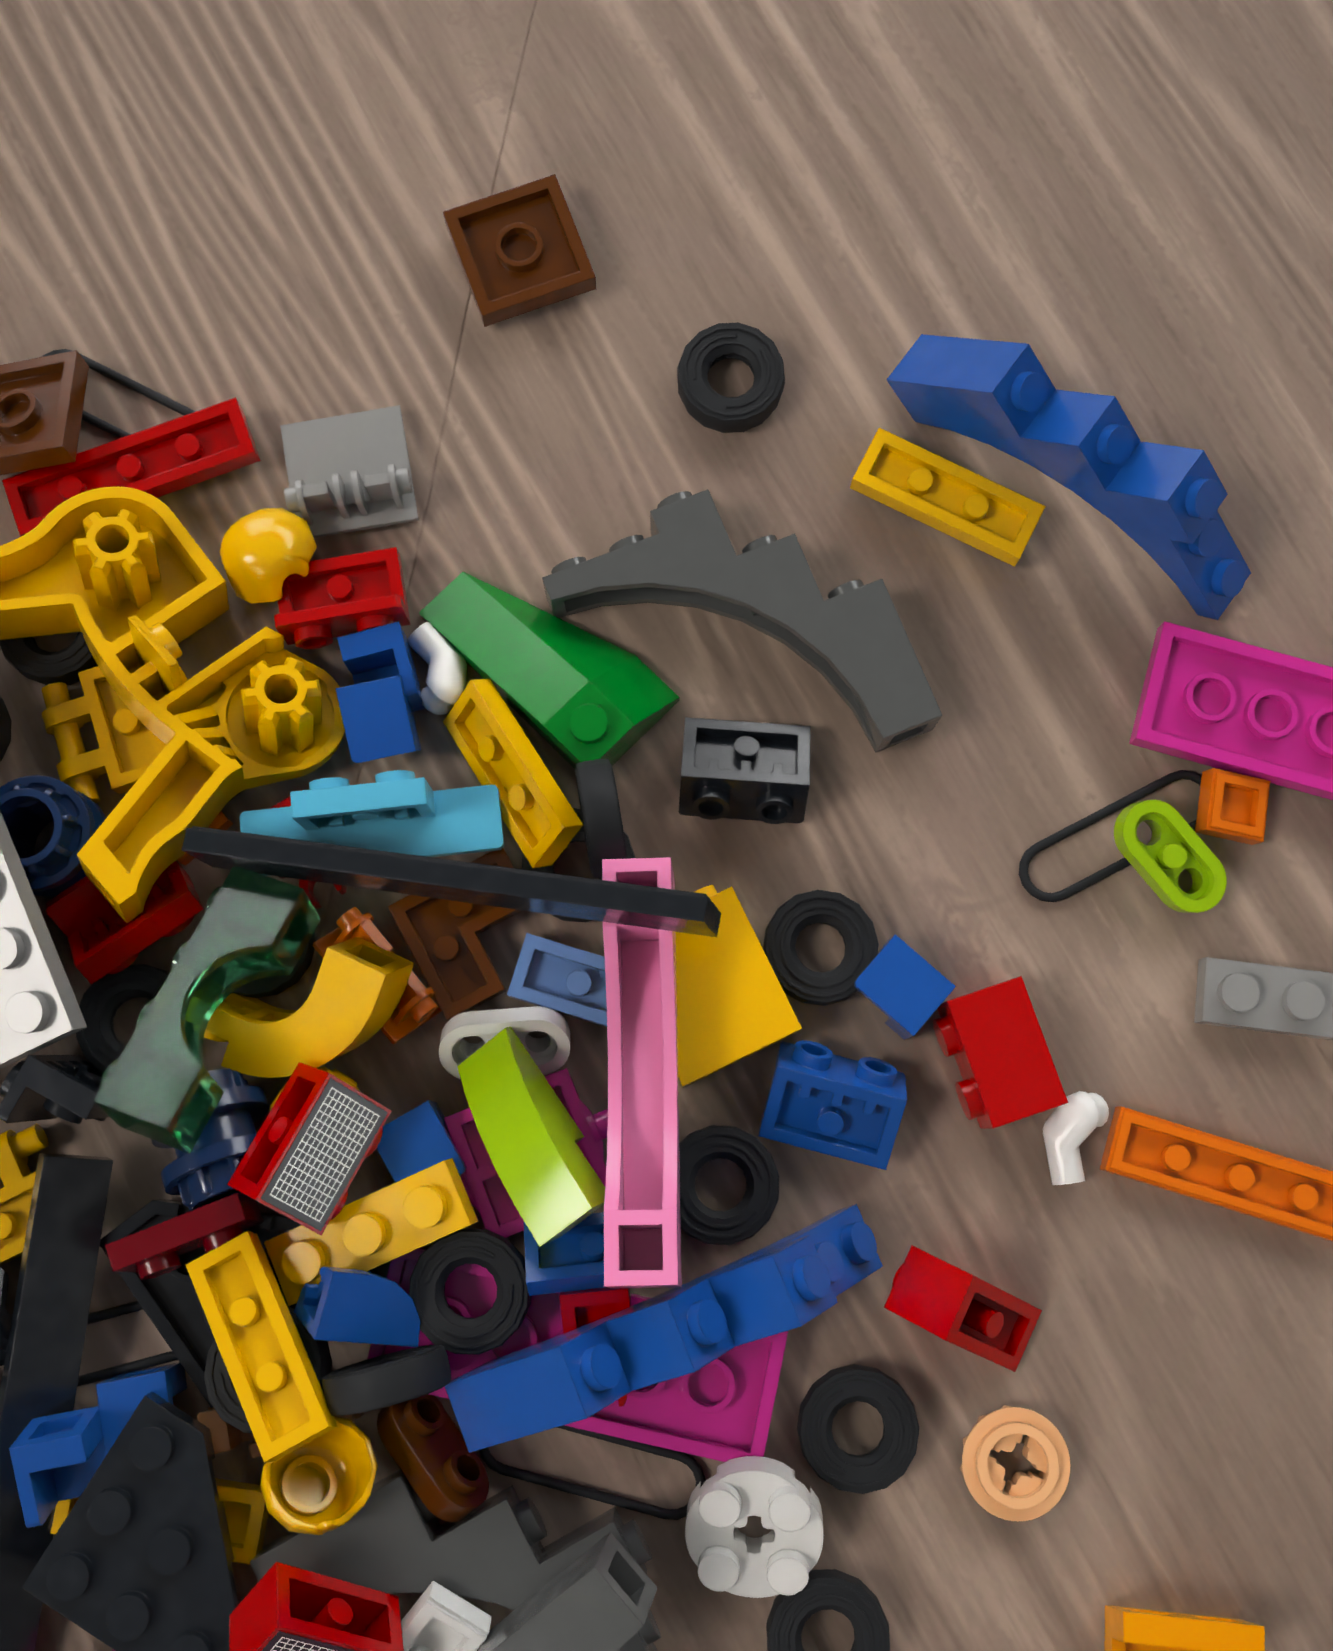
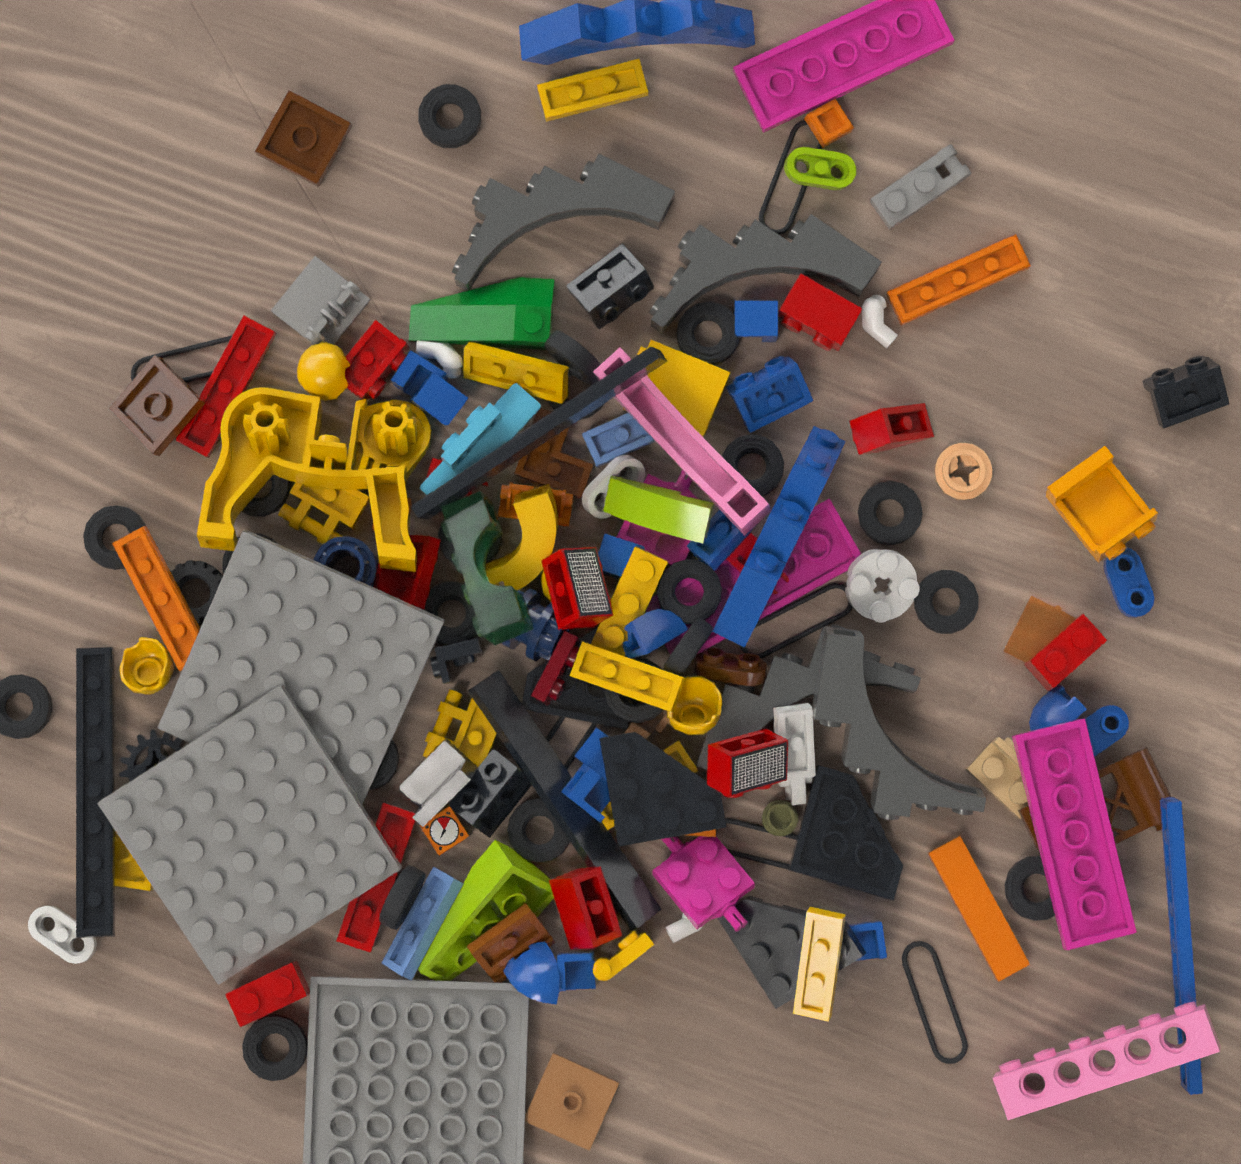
camera: 40 degrees left, 5 degrees up
(1065, 963) = (712, 262): none -> dark grey arch

